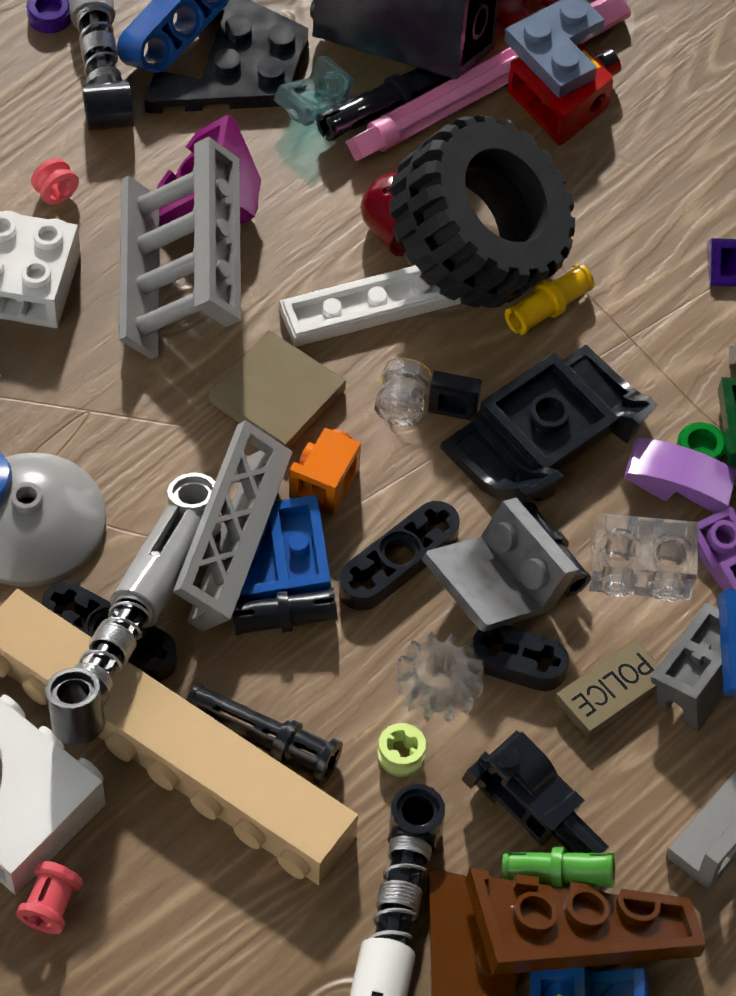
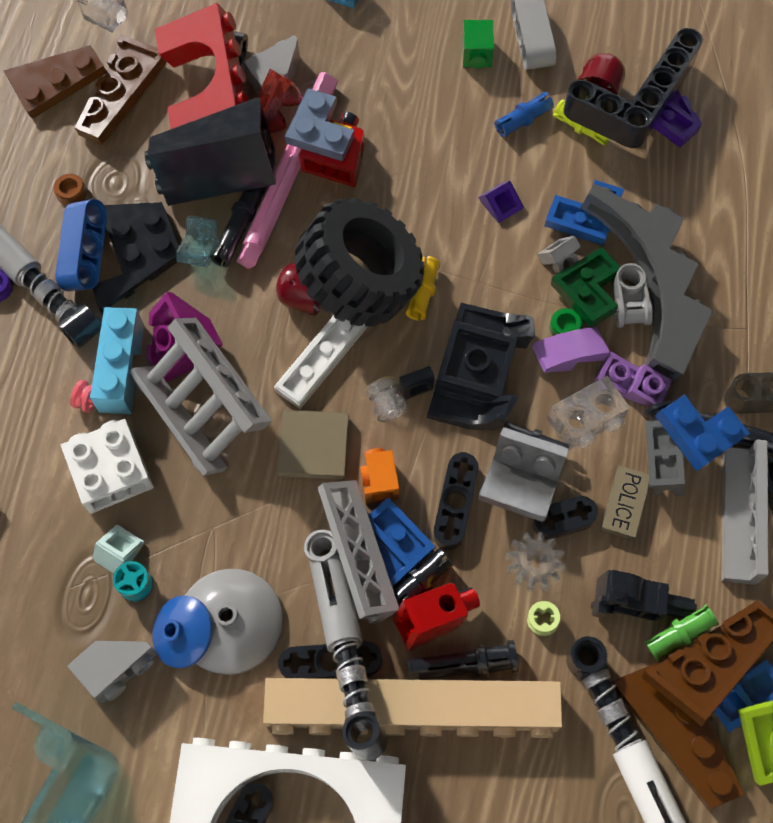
camera: 30 degrees left, 10 degrees up
(142, 139) = (118, 342): none -> medium azure arch
(267, 650) = (433, 614): none -> red torso

